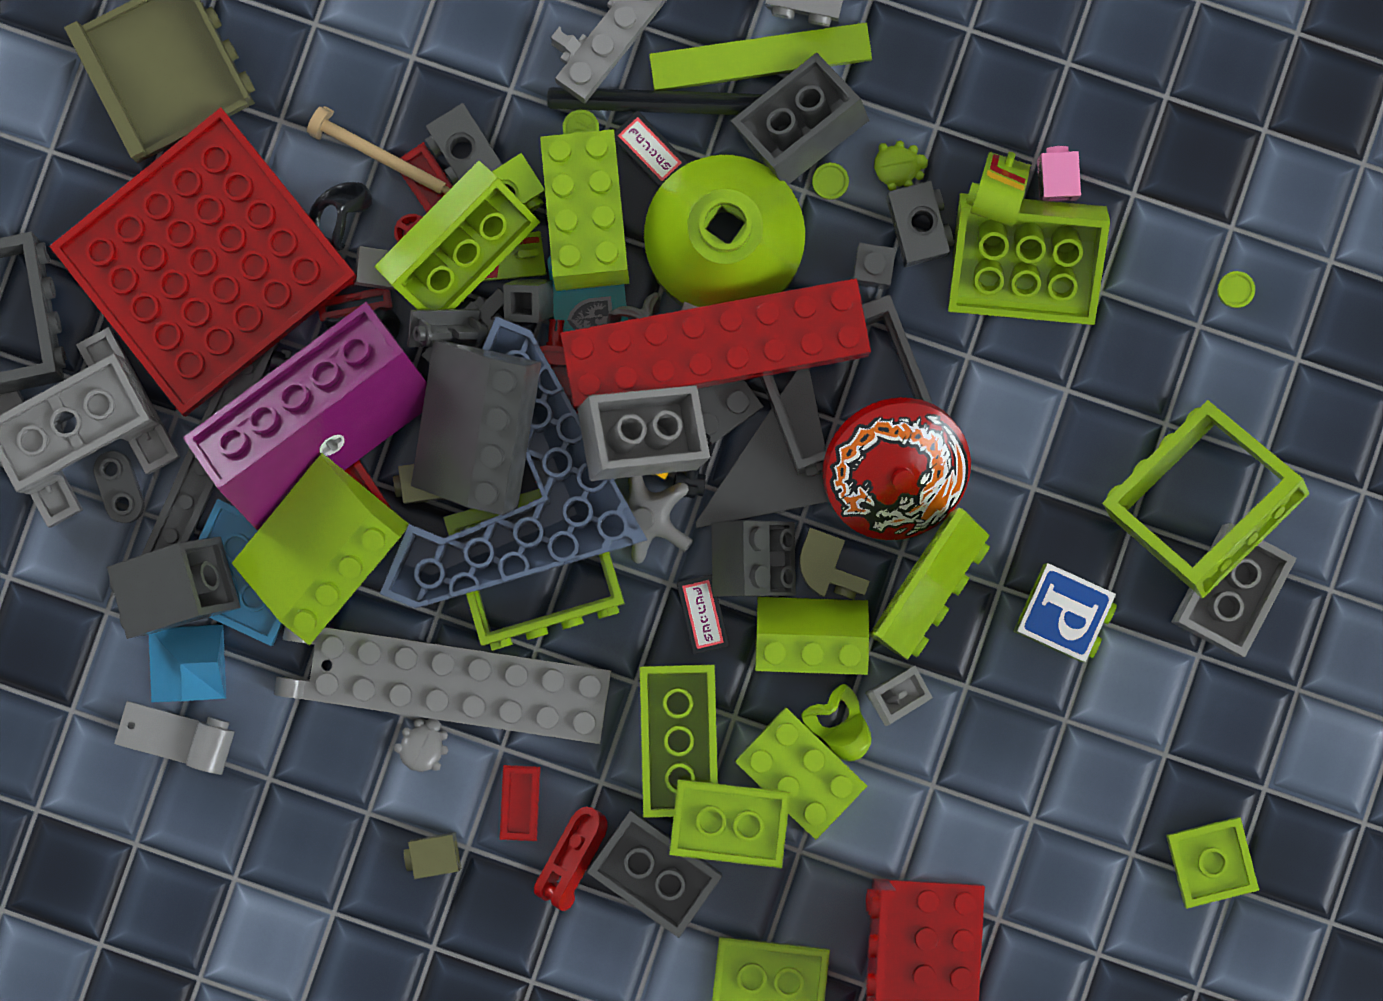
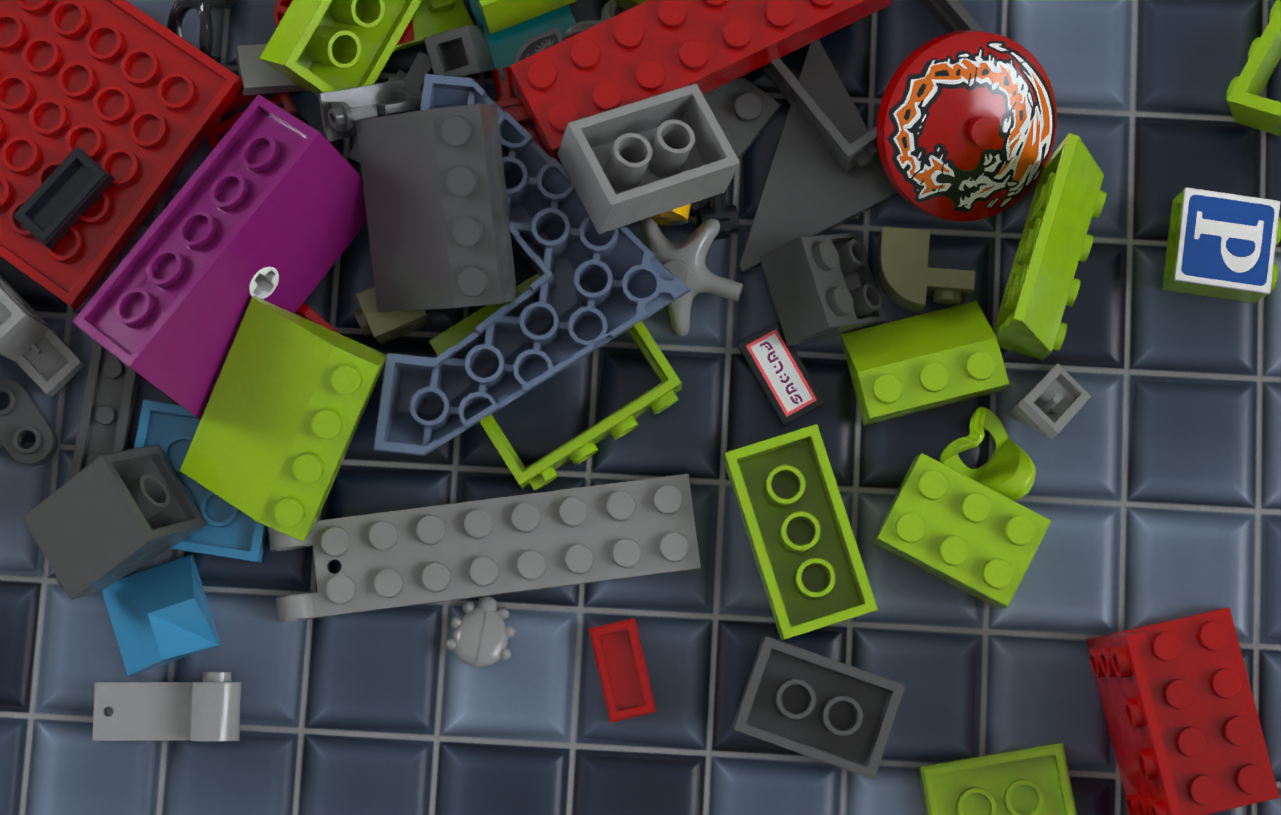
camera: 15 degrees left, 5 degrees down
(198, 330) = (64, 198): none -> black tile
(433, 855) = (532, 767): olive brick -> none
(571, 857) = (707, 719): red plate -> none
(729, 823) = (896, 615): lime tile -> none

